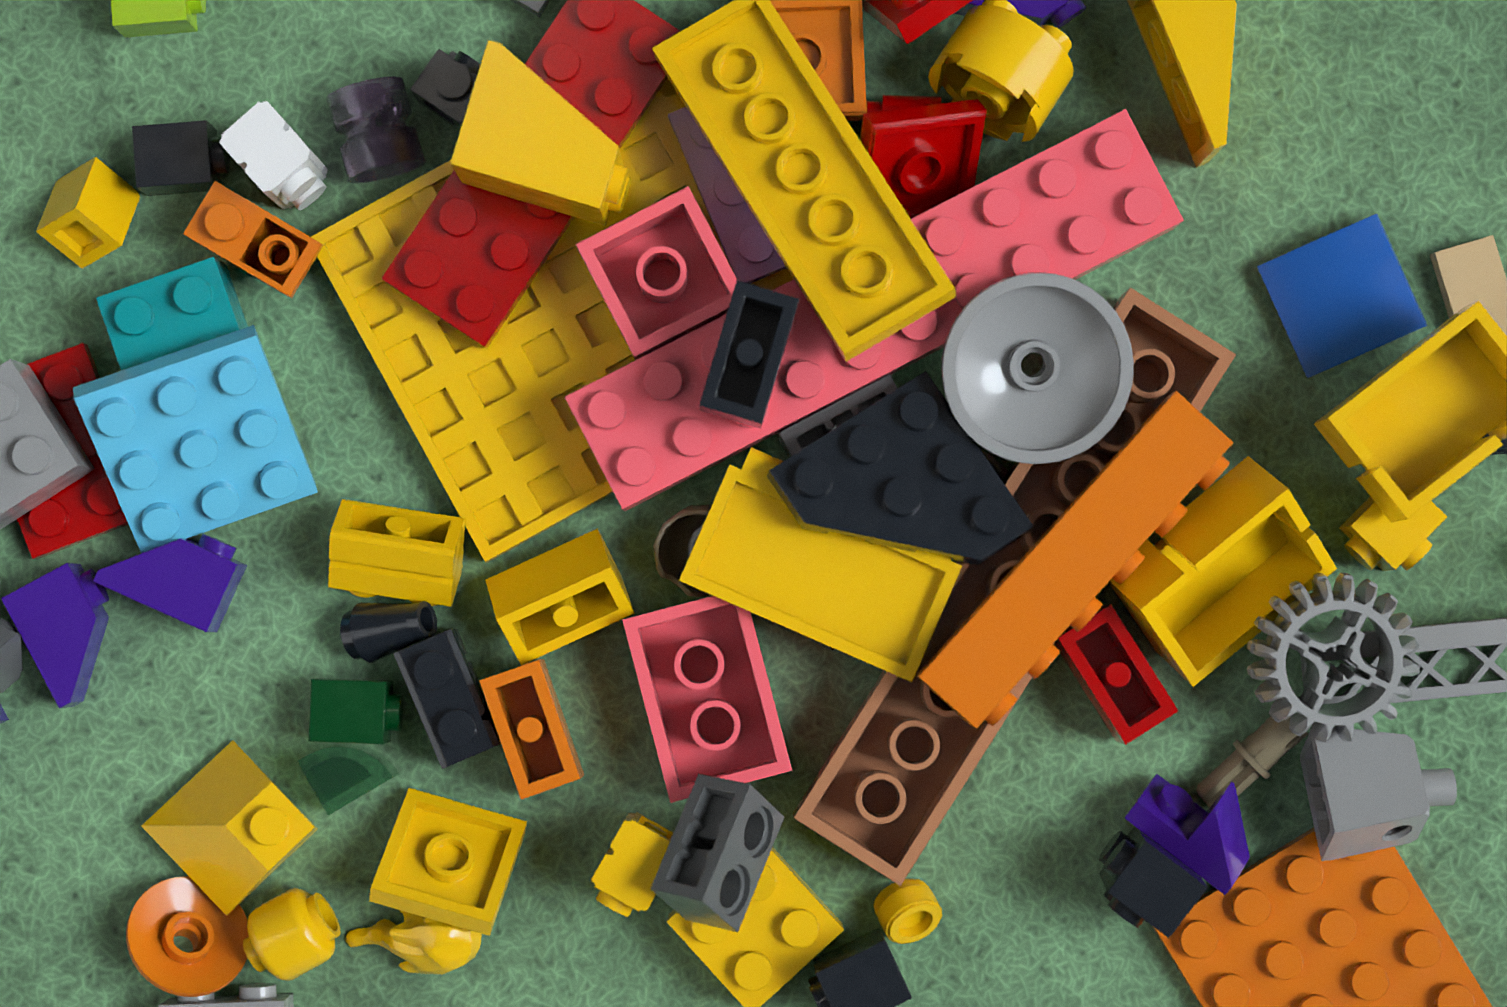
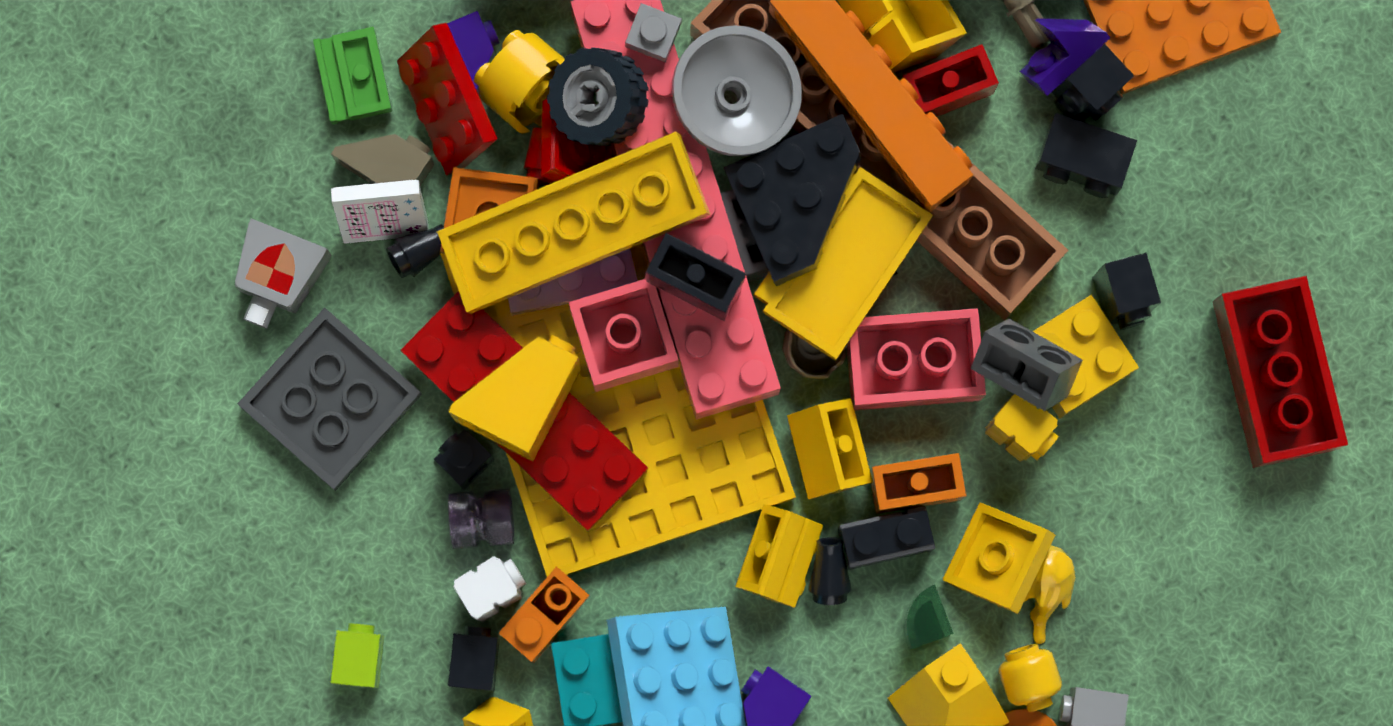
camera: 80 degrees left, 5 degrees down
(354, 711) = (883, 606): dark green brick -> none
(907, 911) = (1085, 254): yellow tile -> none
(981, 199) = (620, 97): none -> black wheel
(1048, 888) = (1085, 156): none -> black brick
(1099, 233) = (653, 32): none -> light grey plate

